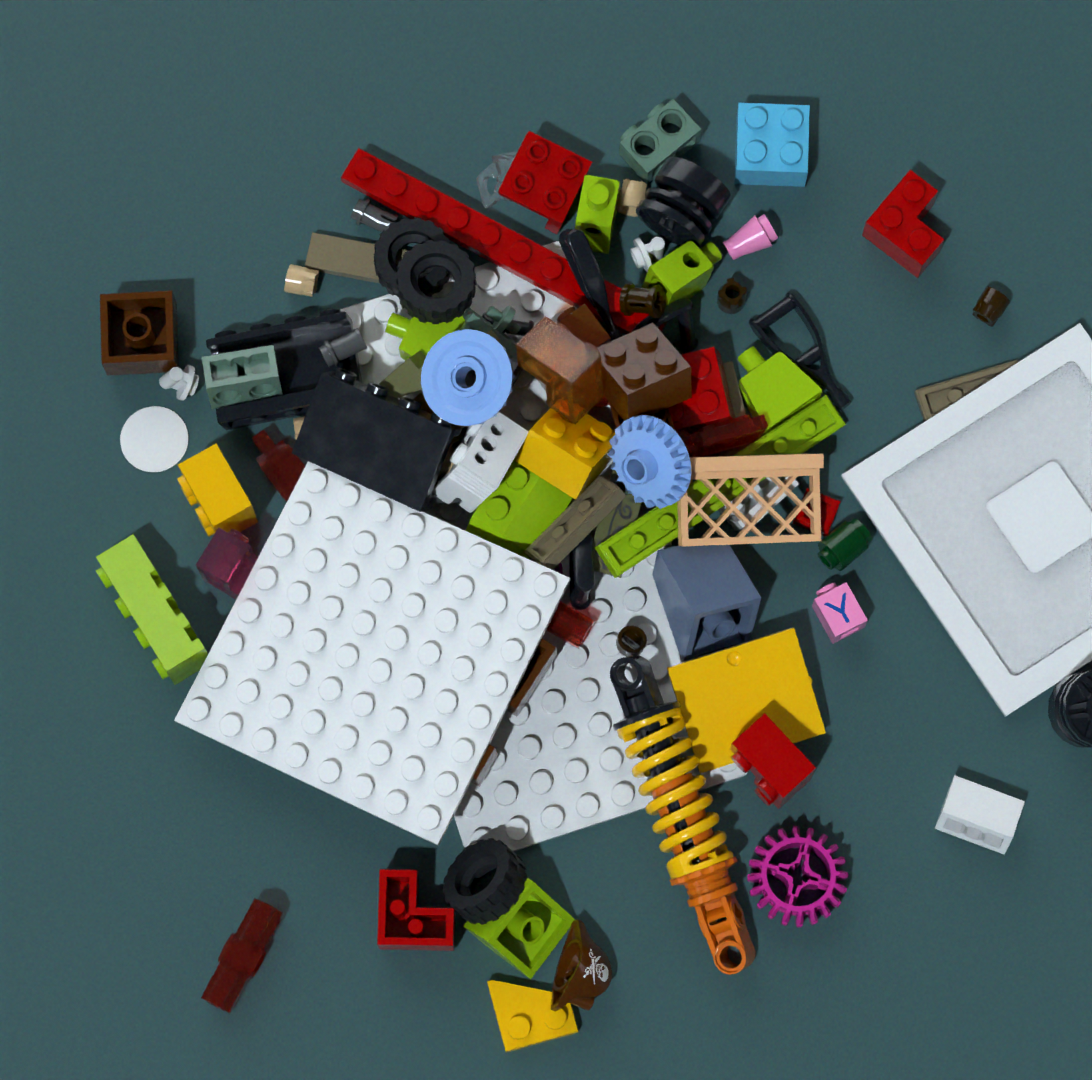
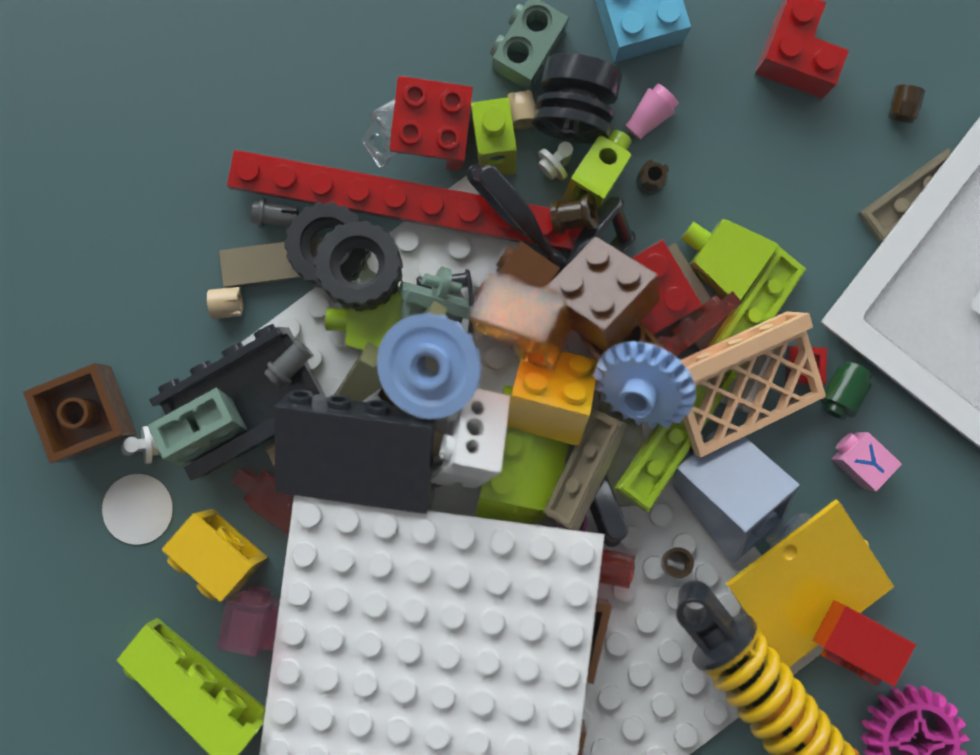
camera: 20 degrees left, 10 degrees up
(810, 357) = (748, 213): black piece -> none

